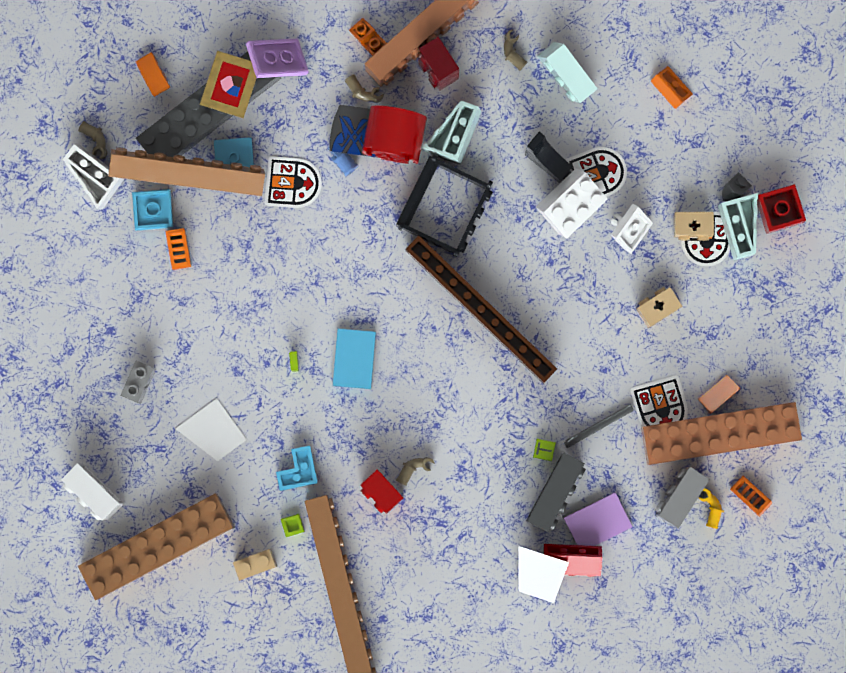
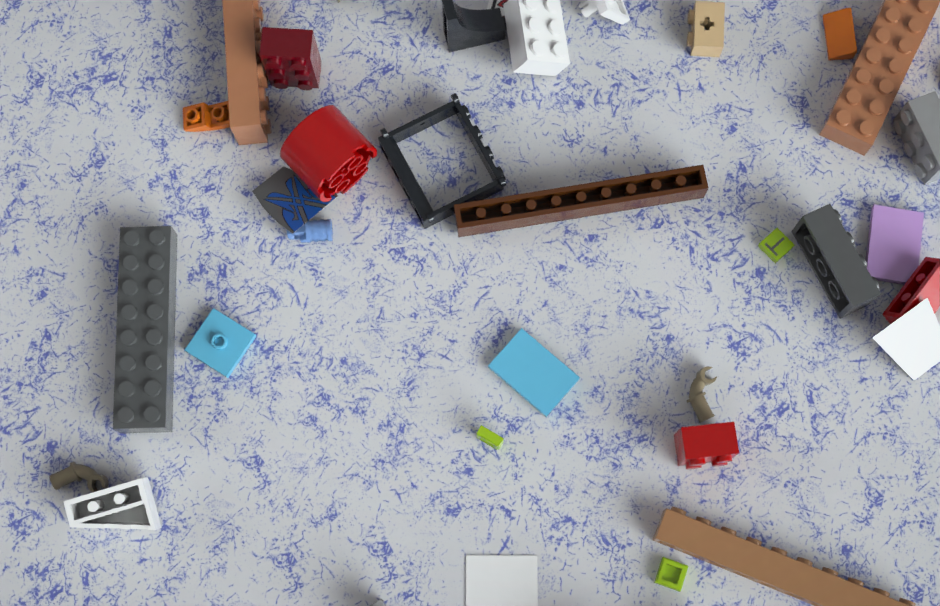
camera: 55 degrees left, 10 degrees down
(152, 74) = (62, 362): orange slope -> none
(152, 209) = (206, 471): medium azure plate -> none
(169, 234) = (251, 461): orange slope -> none
(186, 172) = (192, 401): medium nougat brick -> none
(229, 85) = (138, 283): sticker -> none
(277, 58) = (151, 217): lavender tile -> none
(291, 182) = (294, 303): sticker -> none
(302, 474) = (621, 521): medium azure plate -> none
(360, 93) = (256, 164): dark tan piece -> none
(455, 133) = (374, 98): light aqua wedge -> none
(598, 426) = (789, 174): dark grey bar -> none
(660, 401) = (805, 98): sticker -> none

